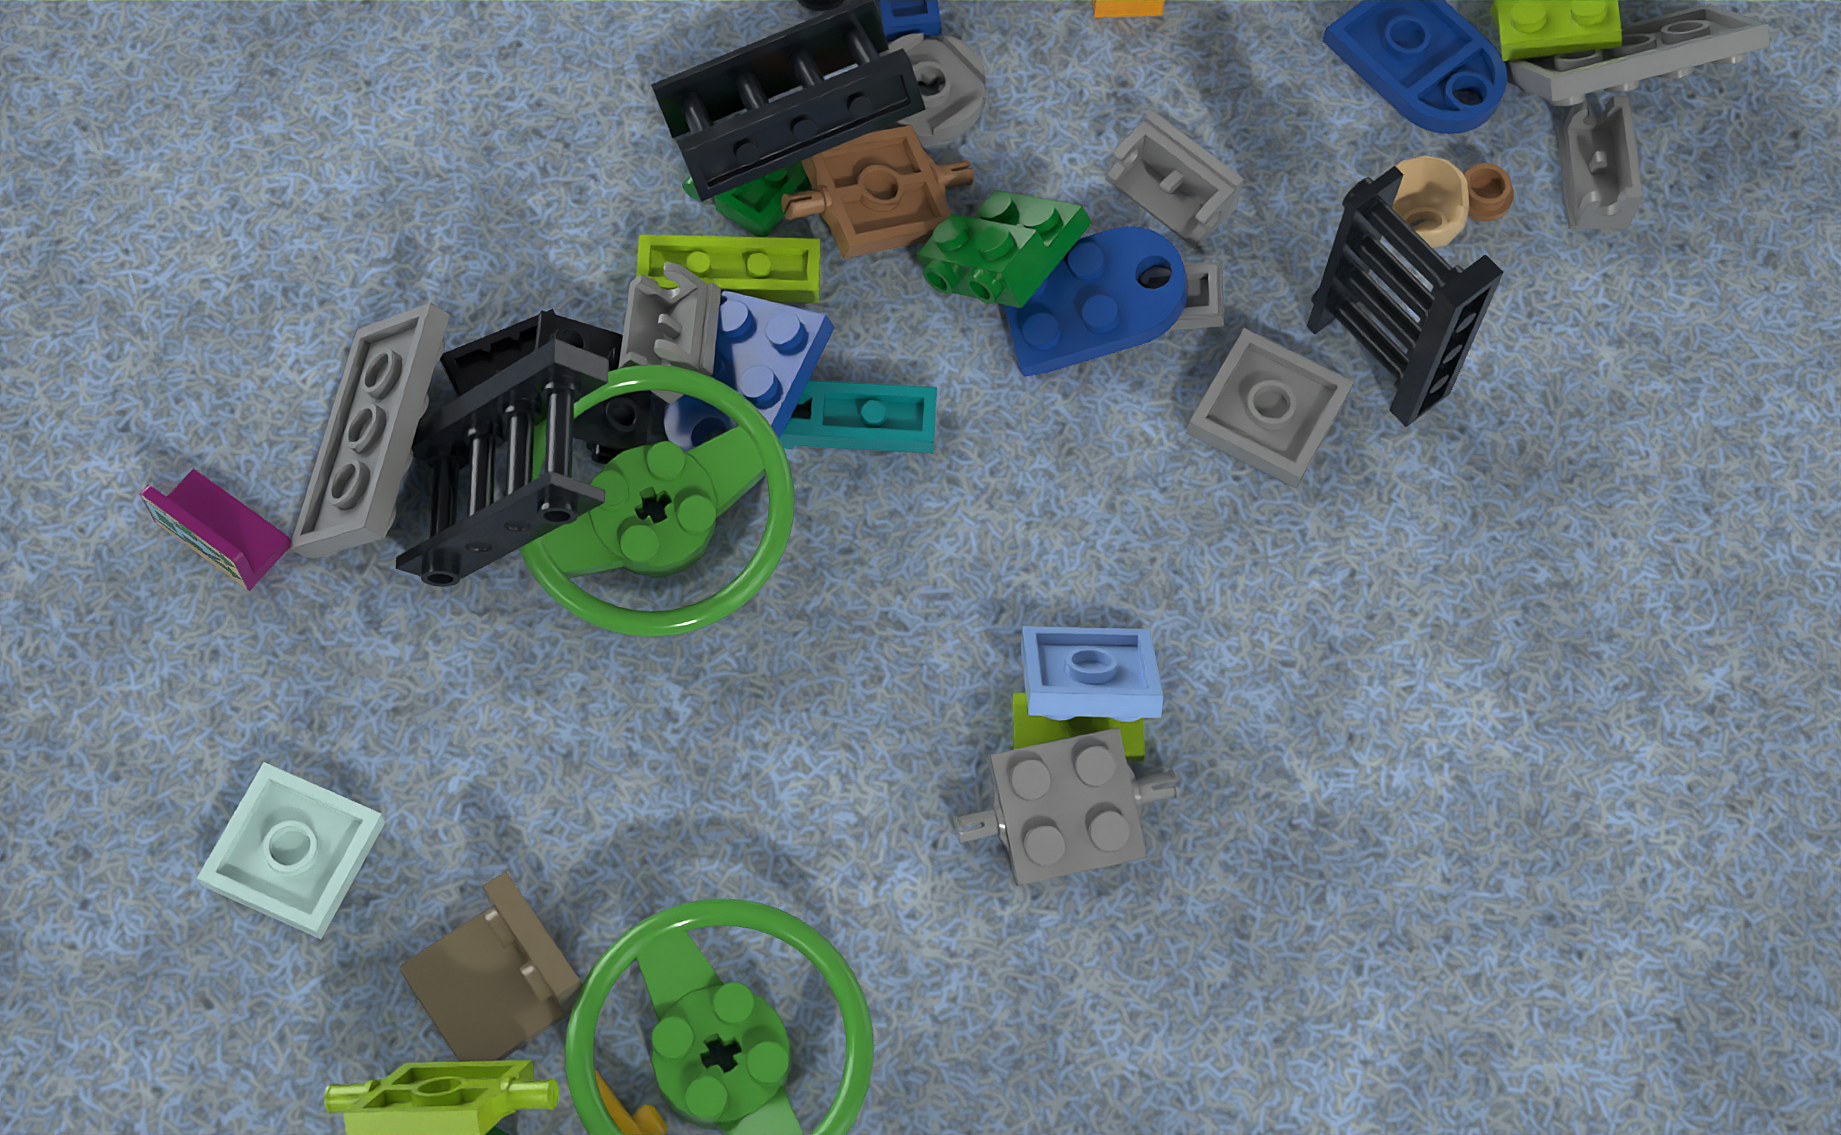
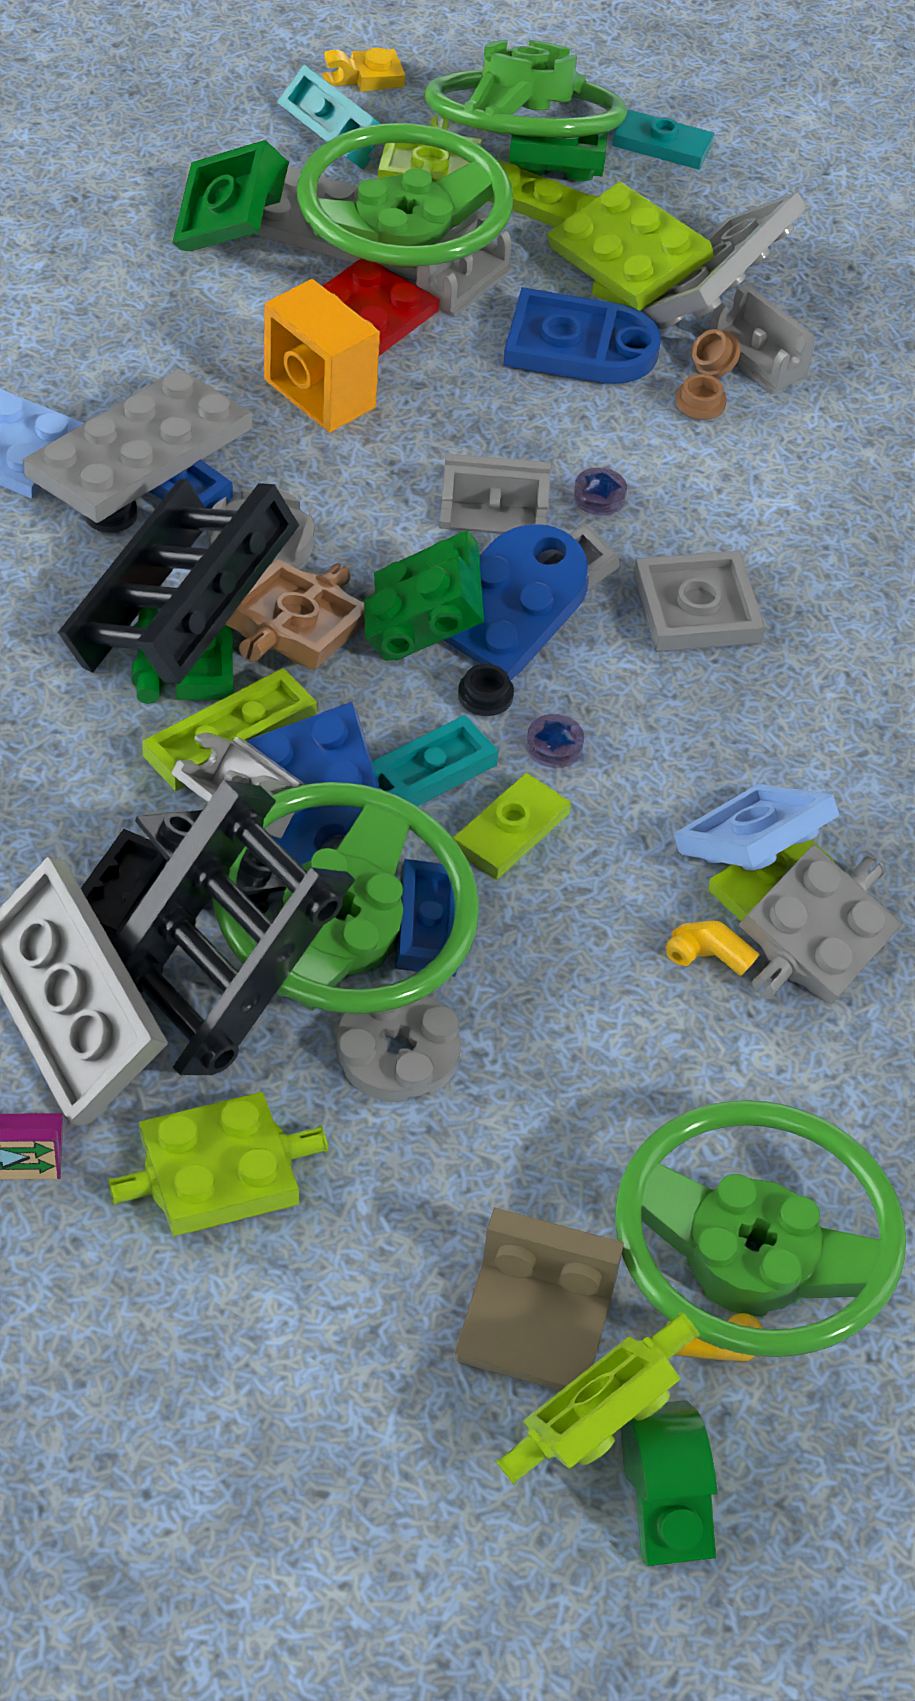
camera: 40 degrees left, 15 degrees down
(291, 850) = (288, 1331): light aqua plate -> none
(370, 666) = (218, 1164): none -> lime plate
(593, 693) = (410, 1073): none -> light grey plate
(724, 555) = (426, 914): none -> blue plate
(890, 521) = (512, 825): none -> lime plate
(959, 752) = (710, 939): none -> yellow arm
(987, 374) = (486, 690): none -> black plate
(1006, 463) = (555, 741): none -> clear purple tile
(1289, 233) = (600, 491): none -> clear purple tile
(1436, 193) = (674, 412): tan hair -> none
(1447, 314) = (794, 451): black fence -> none
(1542, 151) = (715, 352): none -> medium nougat plate

